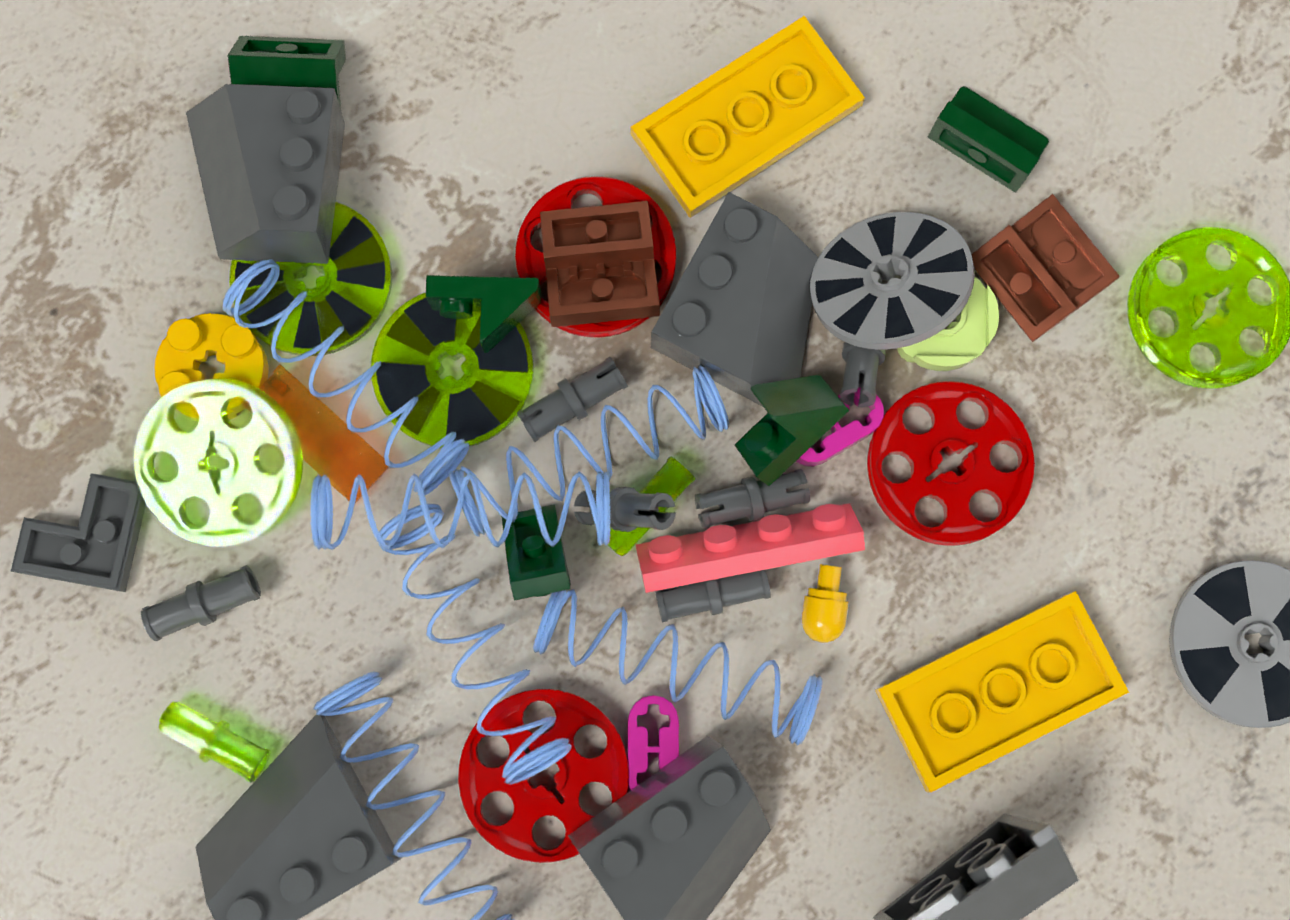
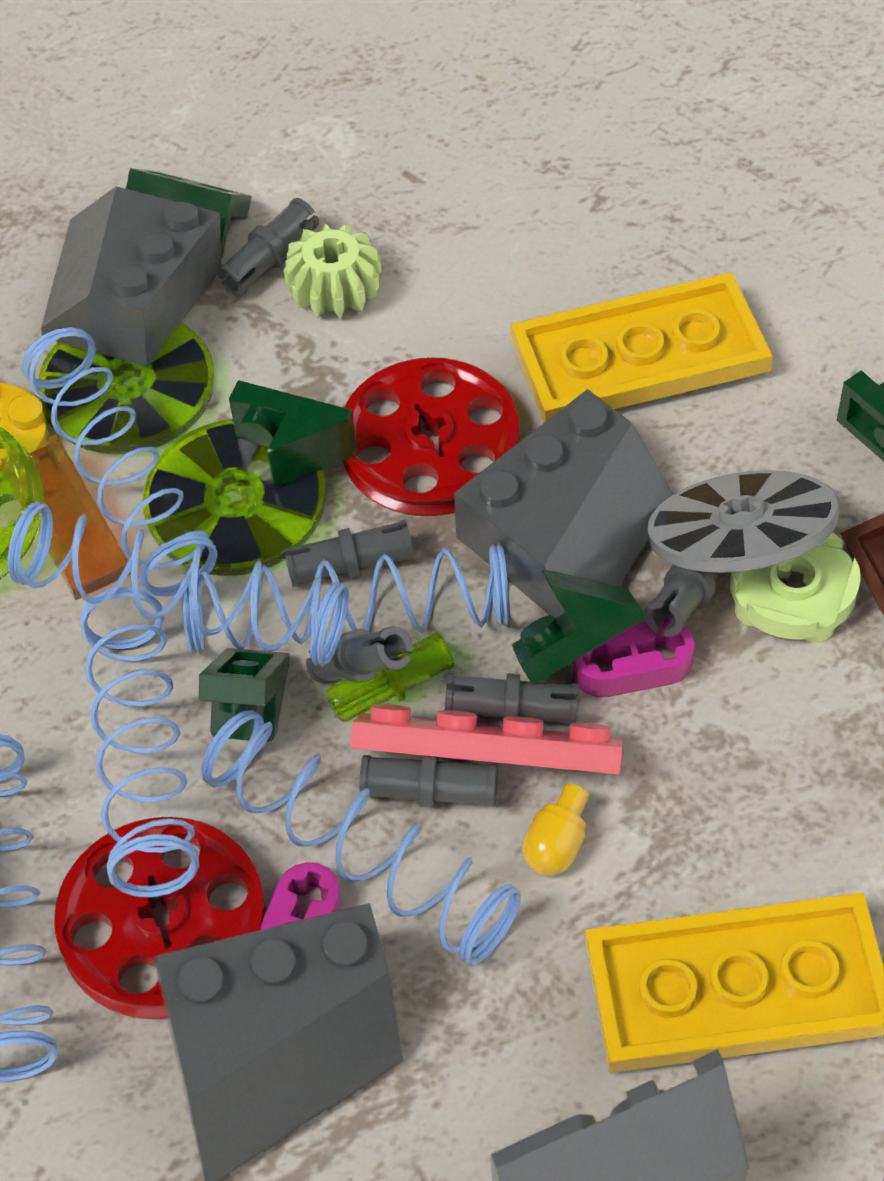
camera: 25 degrees right, 25 degrees down
(383, 96) = (267, 247): none -> dark grey pin
(450, 89) = (332, 270): none -> yellowish green gear
(599, 264) = (426, 430): copper slope -> none
(976, 469) = (752, 757): red wedge -> none

